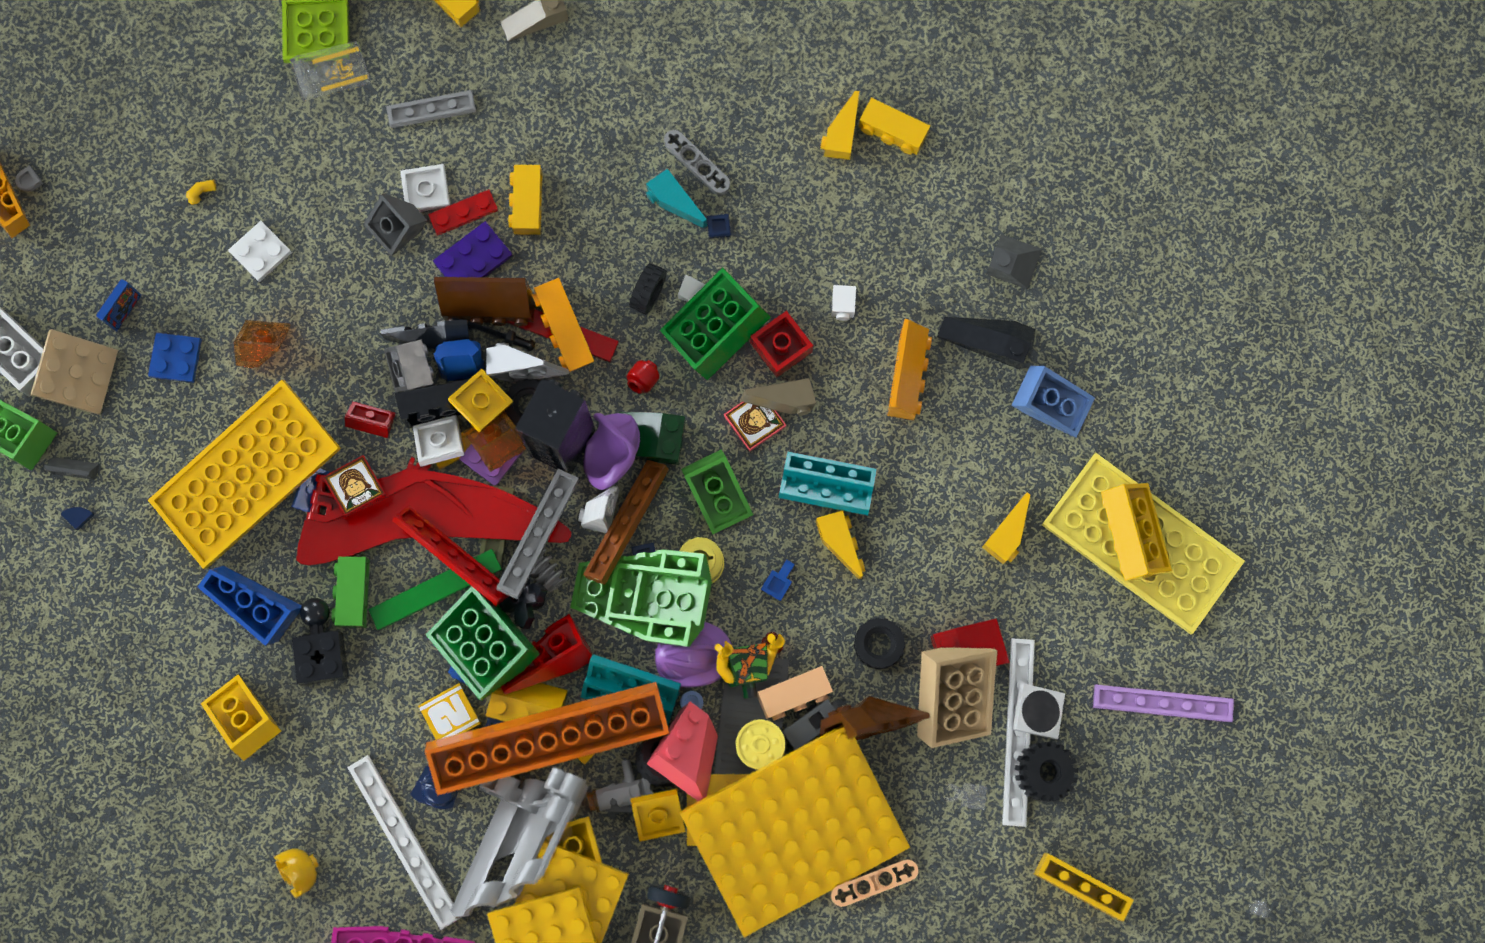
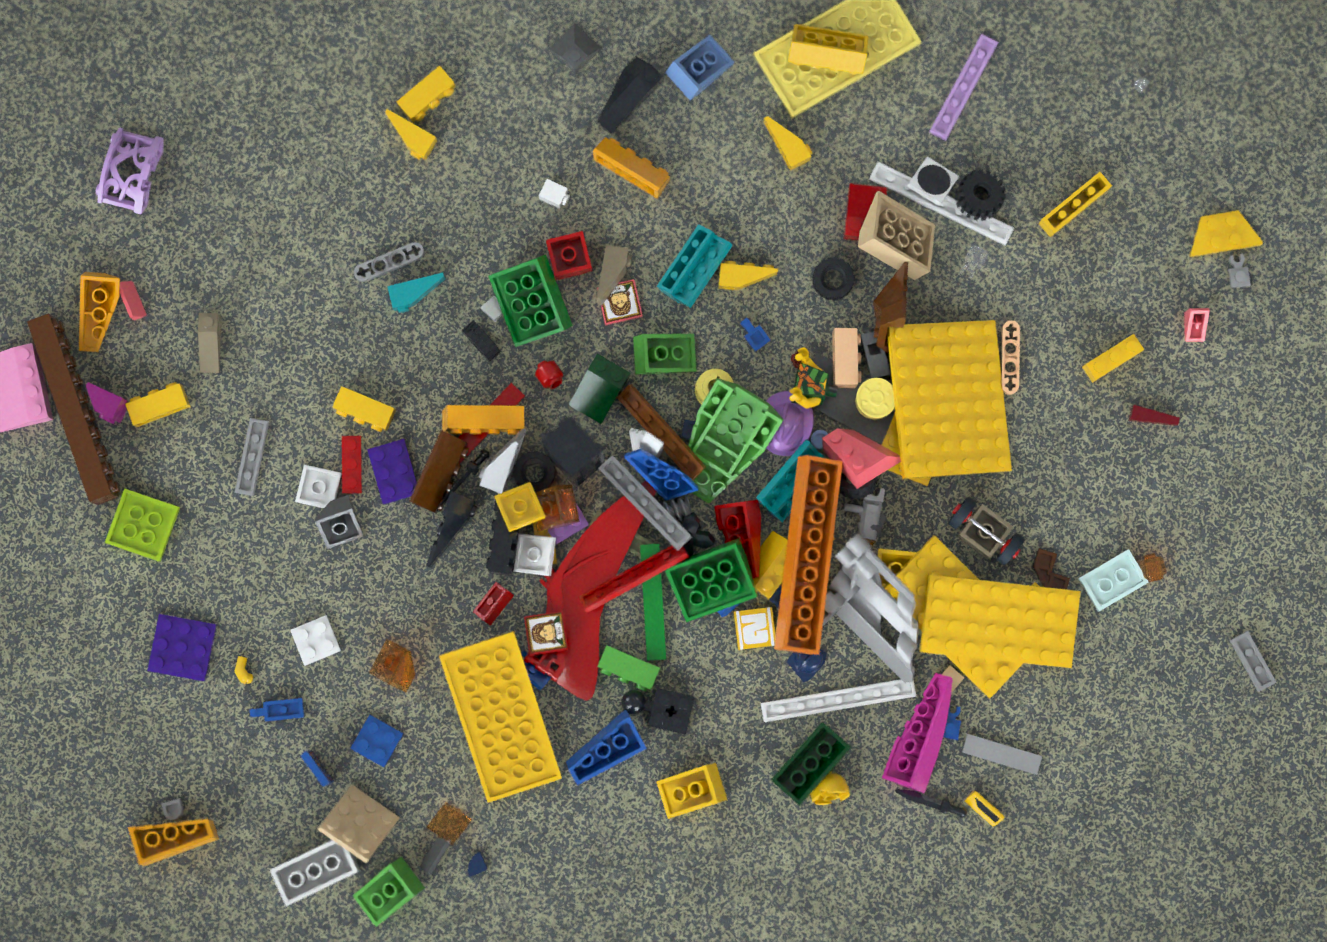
camera: 70 degrees left, 5 degrees up
(110, 468) = (449, 823): none -> clear orange piece
(171, 244) = (280, 710): none -> blue plate
(202, 120) = (182, 647): none -> dark purple plate
(315, 838) = (811, 763): none -> dark green slope
(329, 71) = (187, 526): clear slope -> none
(409, 365) = (466, 554): flat silver slope -> none
(459, 359) = (477, 511): blue slope -> none
(574, 539) = (660, 475): none -> blue wedge
(611, 449) = (602, 420): medium lavender piece -> none
(657, 815) = (896, 497): yellow plate -> none
(718, 226) = (449, 266): dark blue tile -> none

